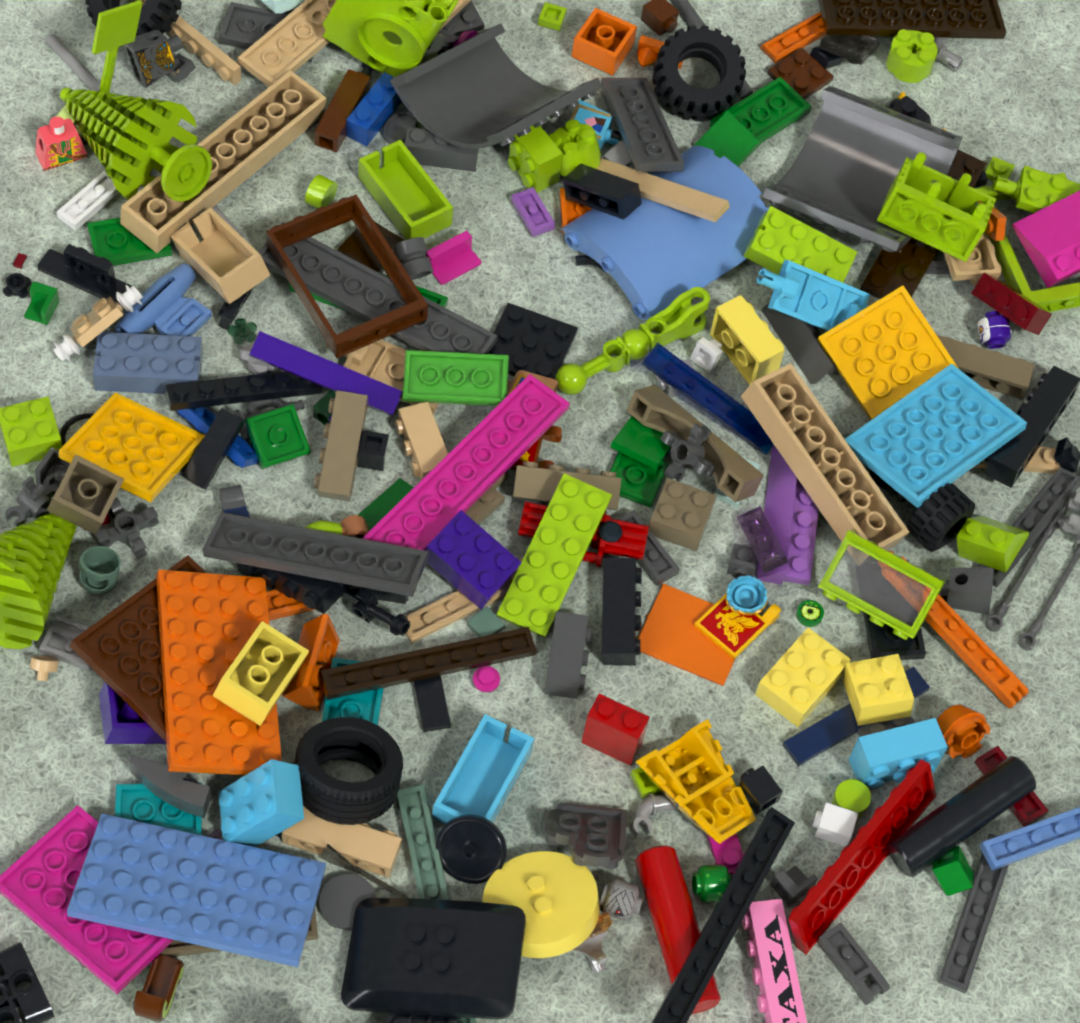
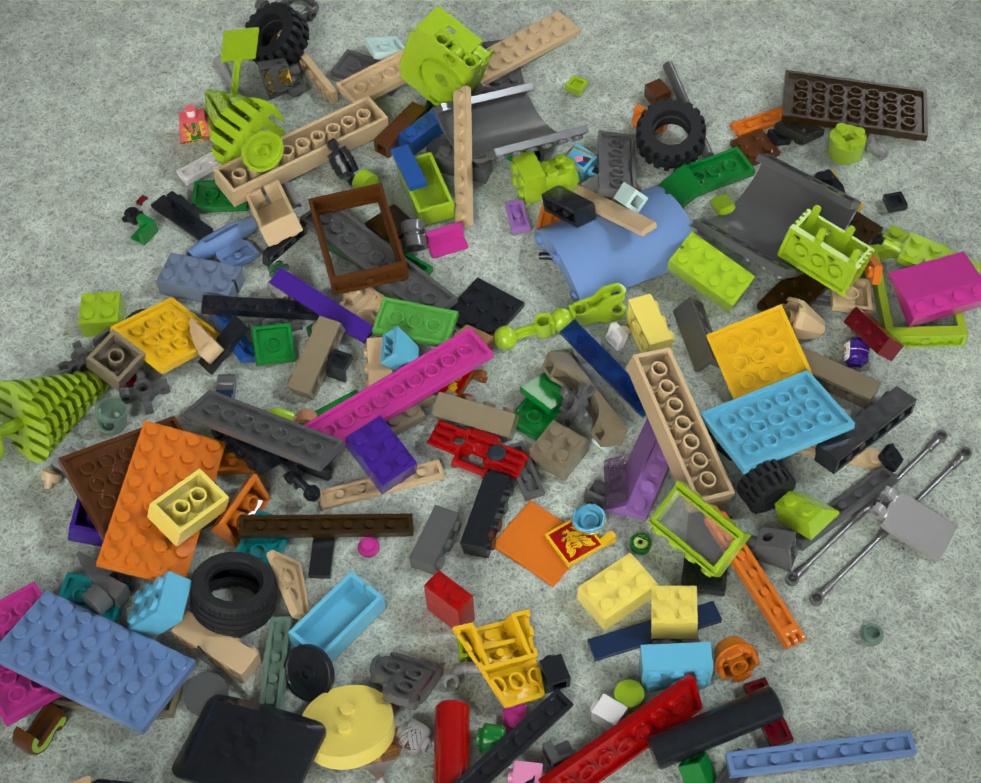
camera: 25 degrees right, 5 degrees down
(91, 325) = (177, 240): tan plate -> none
(176, 812) = (97, 599): none -> dark grey piece
(188, 449) = (205, 344): none -> tan piece
(284, 169) = (341, 161): none -> black piece
(380, 166) = (408, 167): none -> blue tile
(411, 746) = (291, 583): none -> tan wing
(447, 418) = (398, 349): none -> medium azure torso
(448, 141) = (463, 156): none -> tan plate
(485, 623) = (382, 505): sand green tile -> none
(554, 555) = (447, 462): lime plate -> none
(604, 41) = (608, 105): orange brick -> none
(682, 170) = (630, 197): none -> light aqua brick
(785, 159) = (722, 204): none -> lime tile
(812, 296) = (707, 302): medium azure plate -> none
(928, 297) = (803, 319): none -> tan cone
(987, 125) = (895, 202): none -> black plate

